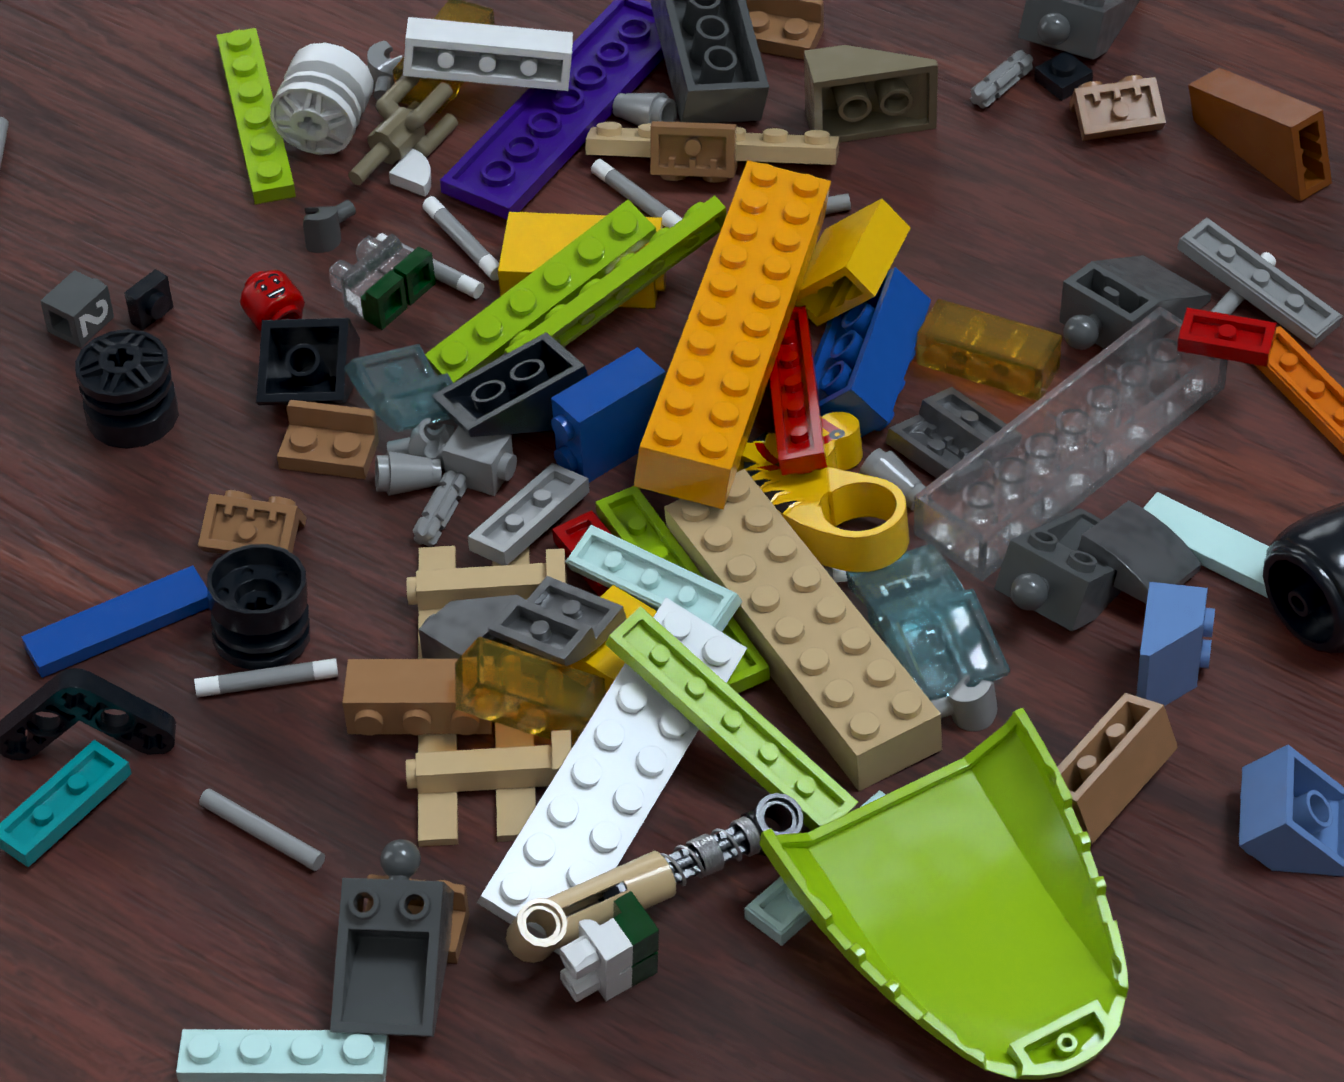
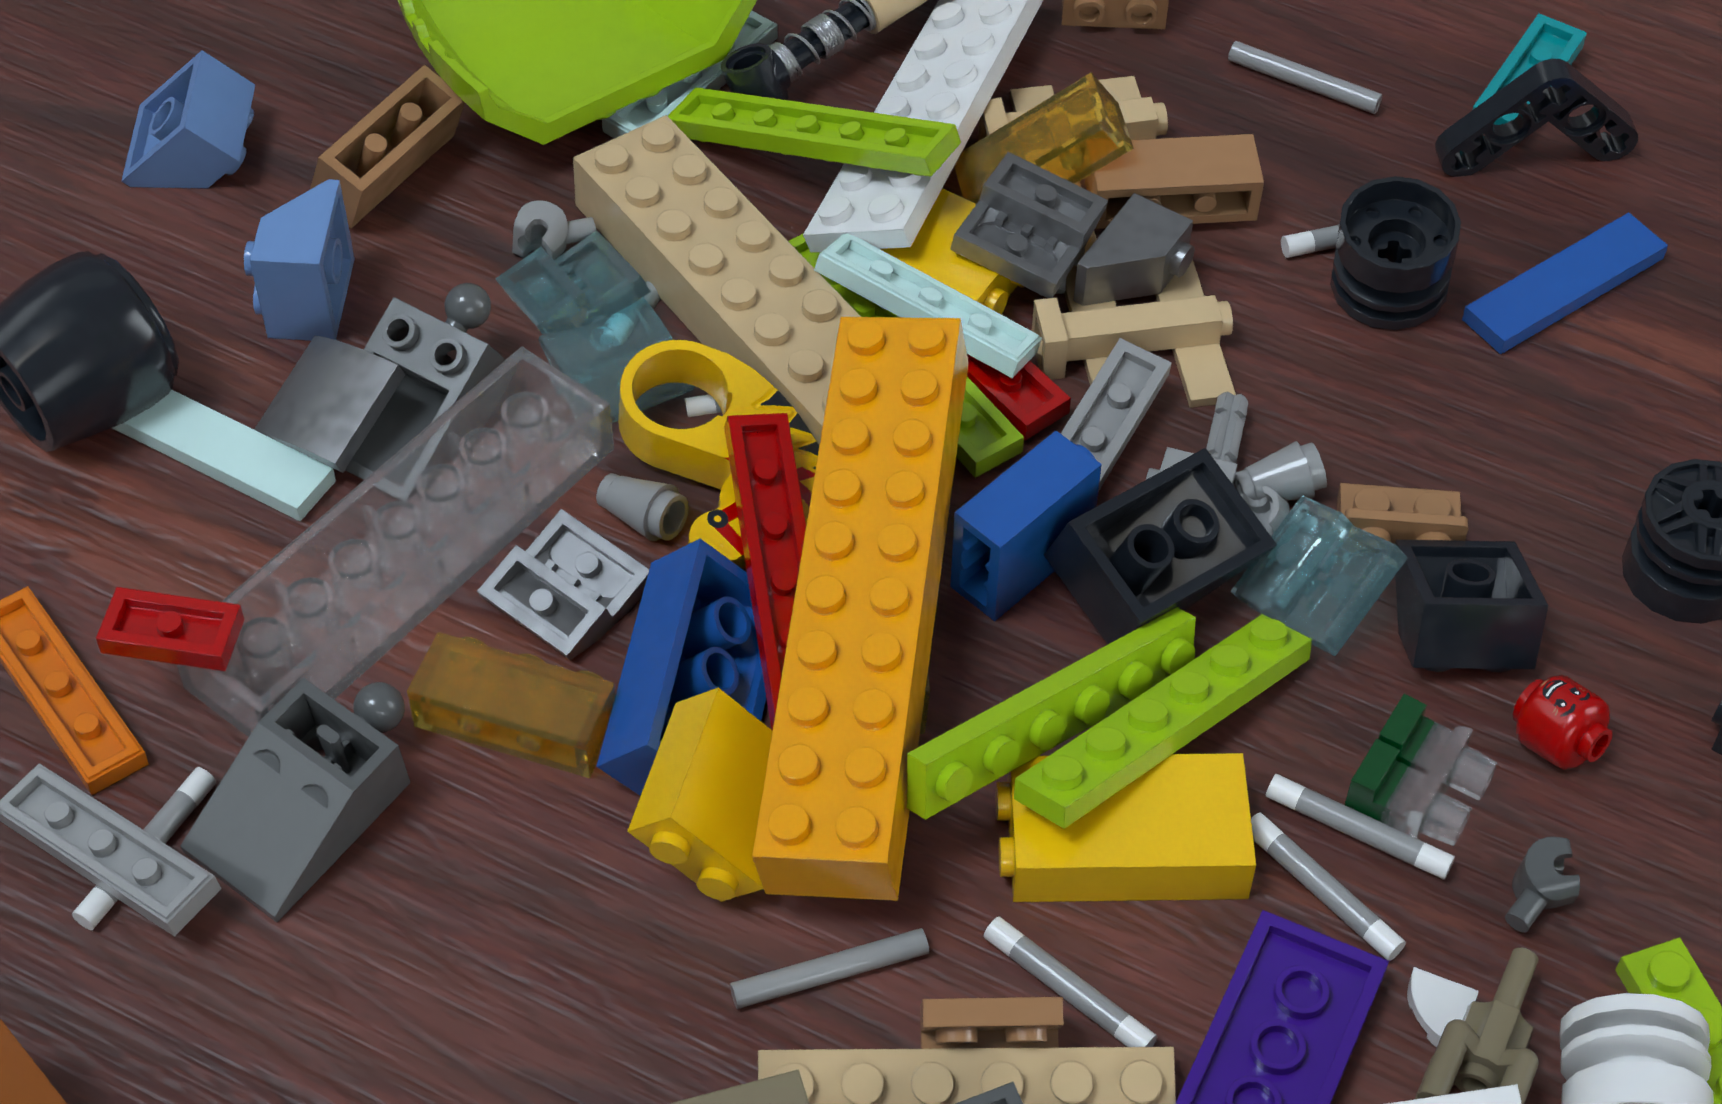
camera: 170 degrees right, 5 degrees up
(240, 521) = (1452, 397): medium nougat bracket -> none

